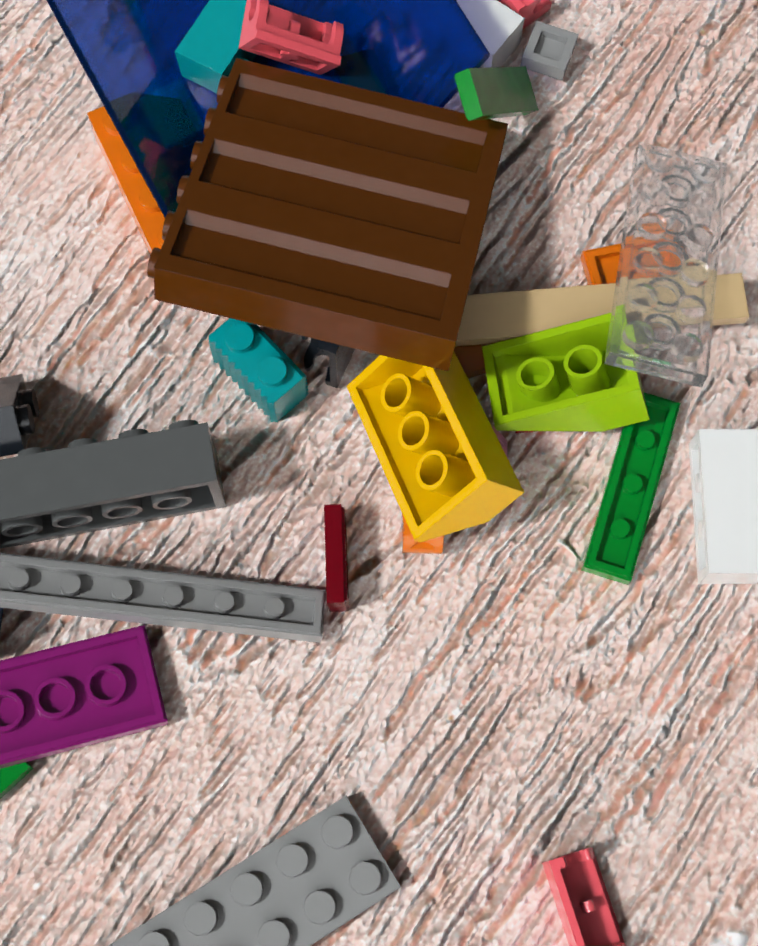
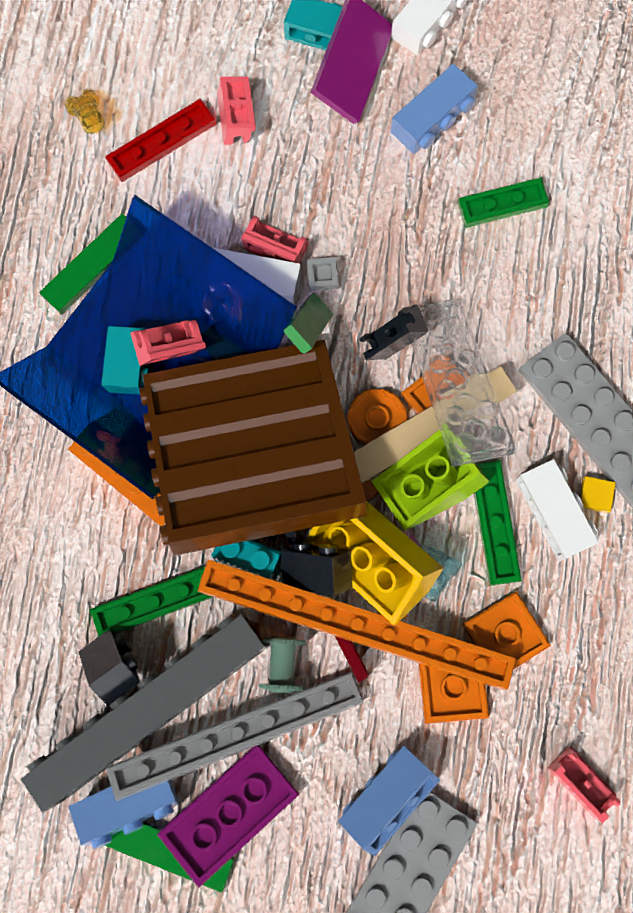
camera: 20 degrees left, 5 degrees up
(104, 372) = (149, 603): none -> green tile
(233, 531) = (282, 664): none -> sand green hose
(288, 788) = (388, 800): none -> medium blue brick
(346, 421) = (317, 568): none -> black brick
(366, 524) = (356, 625): none -> orange plate
(459, 683) = (450, 696): none -> orange tile
(525, 511) = (451, 568): none -> clear light blue plate
(530, 261) = (375, 414): none -> orange tile
(573, 646) = (508, 630): none -> orange tile
(612, 167) = (395, 334): none -> black hinge

